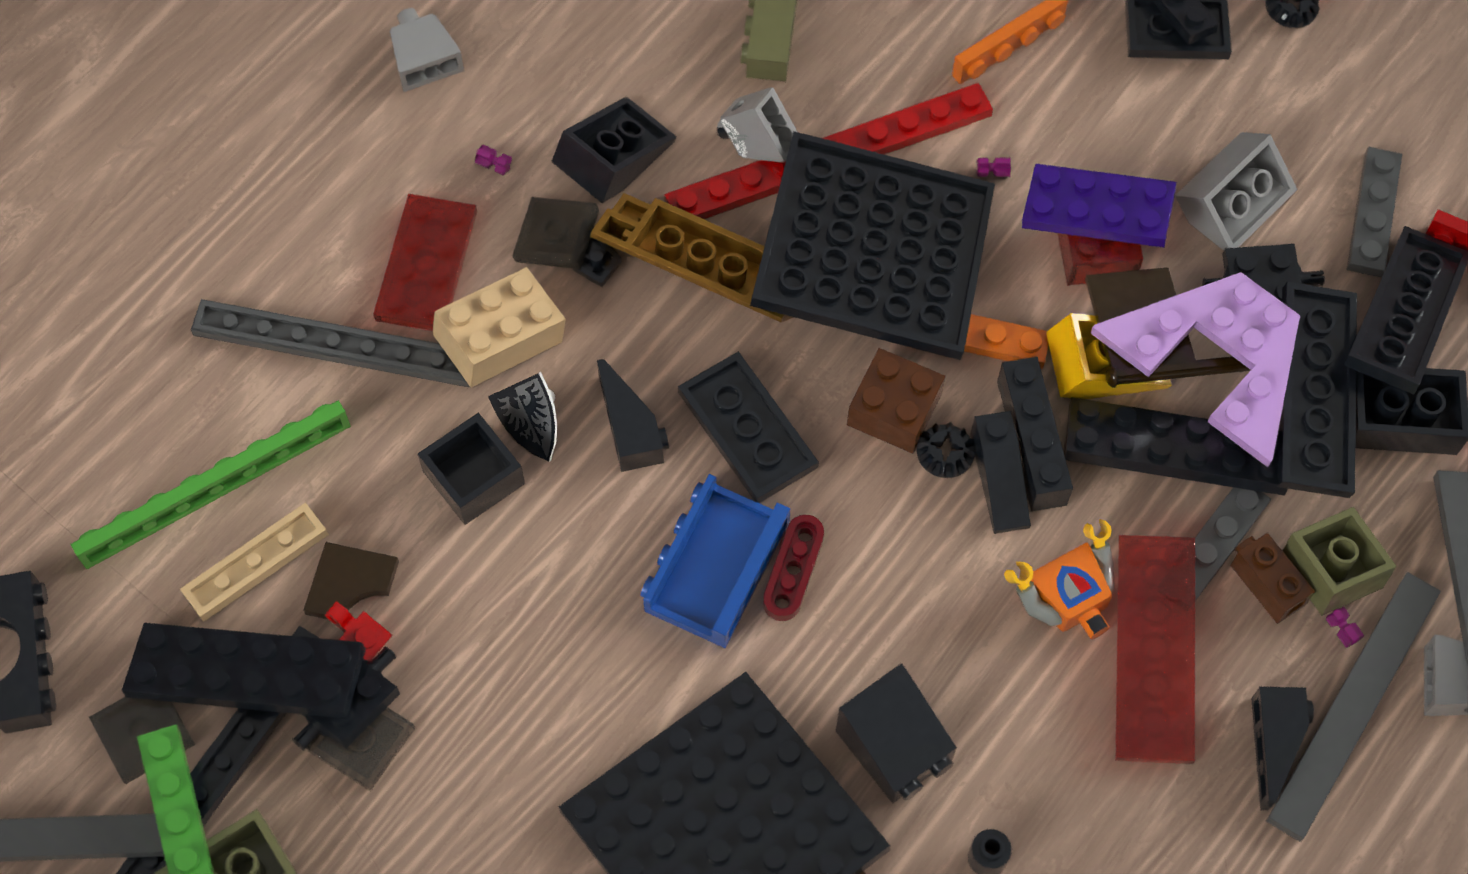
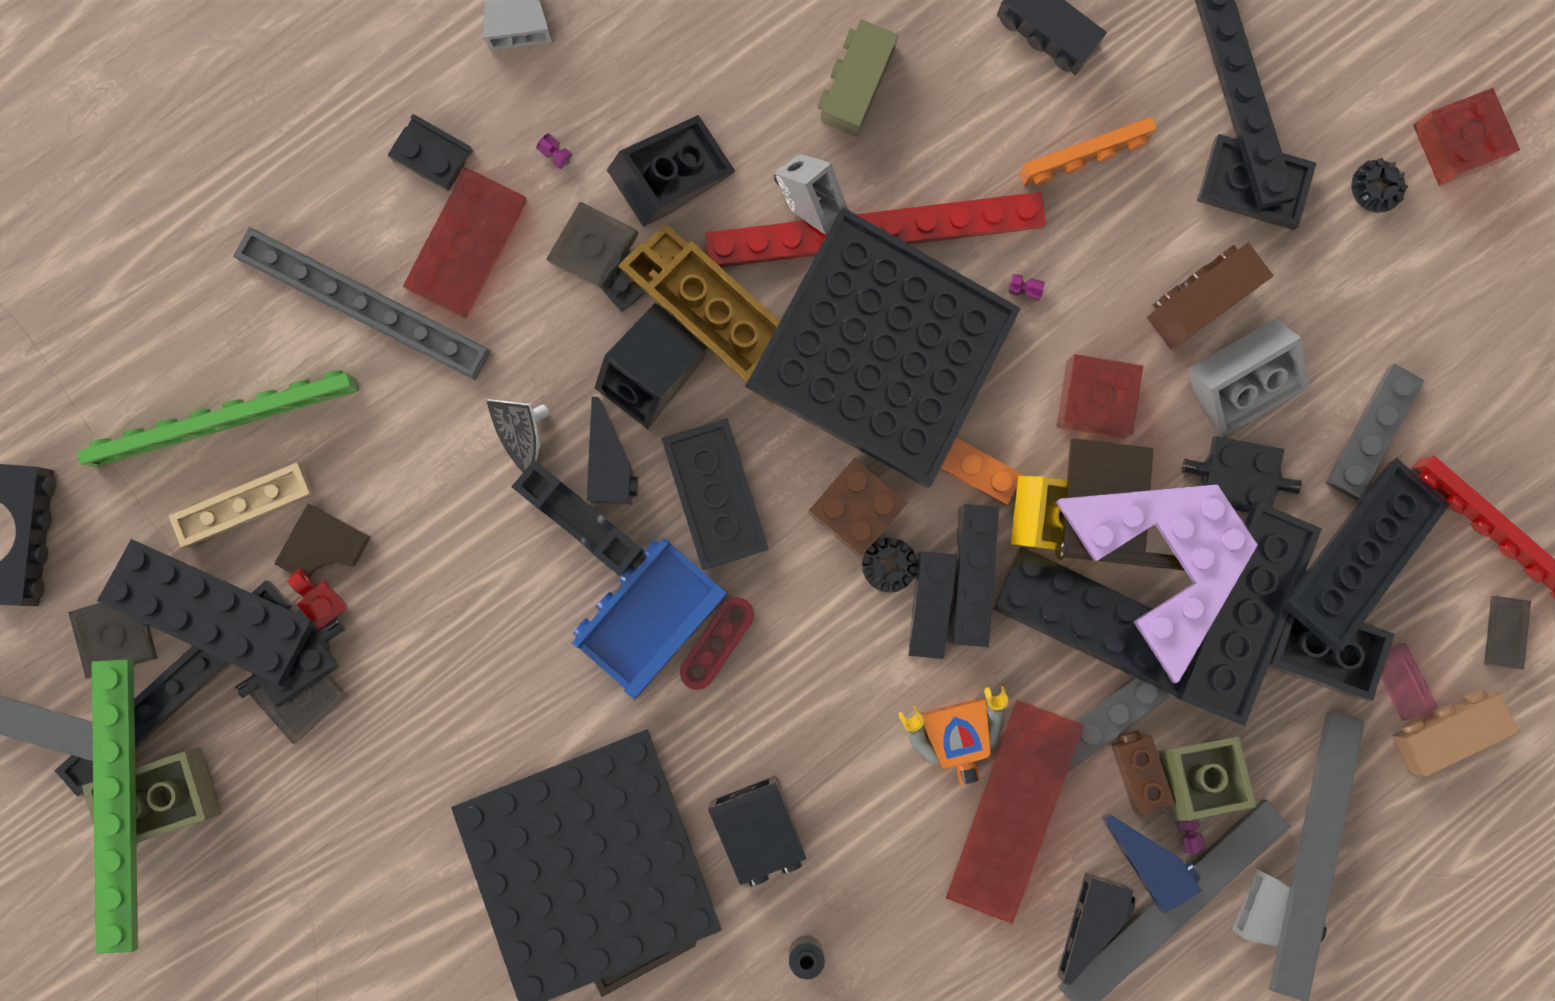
camera: 15 degrees right, 20 degrees up
(369, 191) = (430, 152): none -> black plate
(471, 468) = (450, 472): black piece -> none
(498, 327) = (511, 335): tan brick -> none
(581, 467) = (578, 518): none -> black arch
(646, 323) = (649, 365): none -> black slope
(1099, 205) = (1109, 369): dark purple plate -> none
(1170, 123) = (1208, 293): none -> reddish brown brick
(1318, 659) = (1160, 871): none -> dark blue slope

